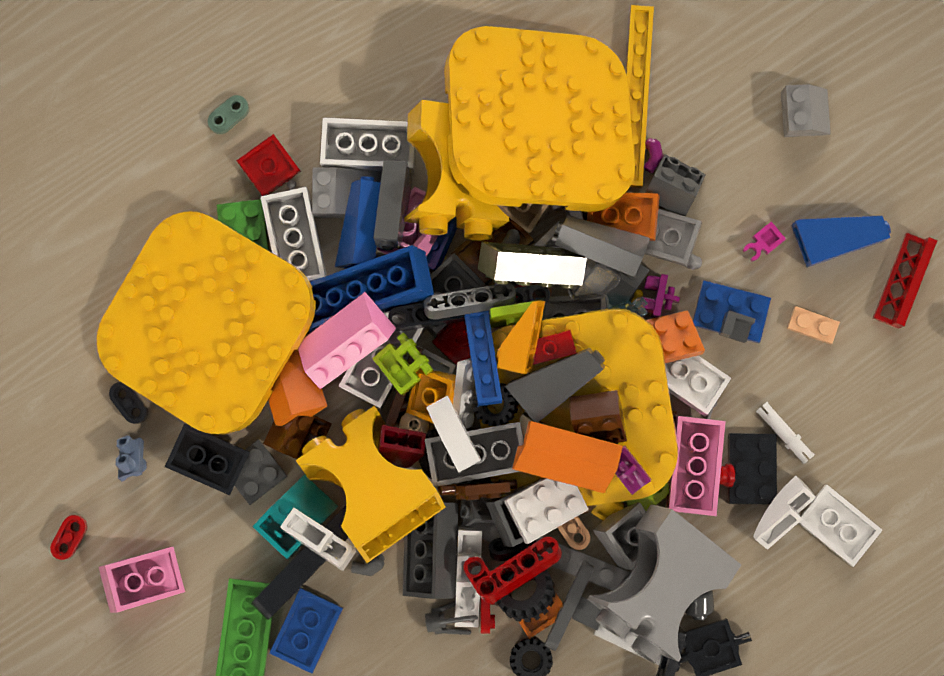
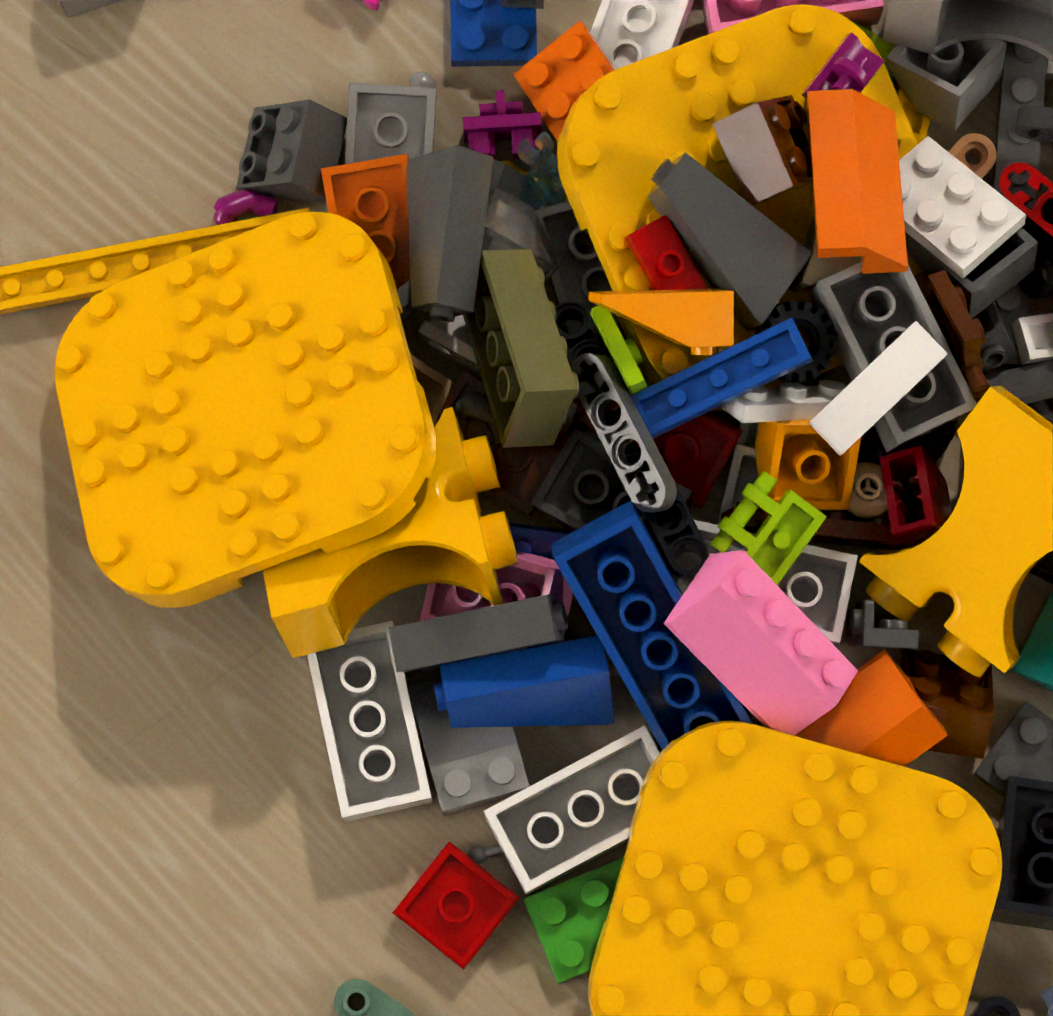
camera: 110 degrees left, 5 degrees down
(337, 409) = (886, 632): none -> dark grey bracket

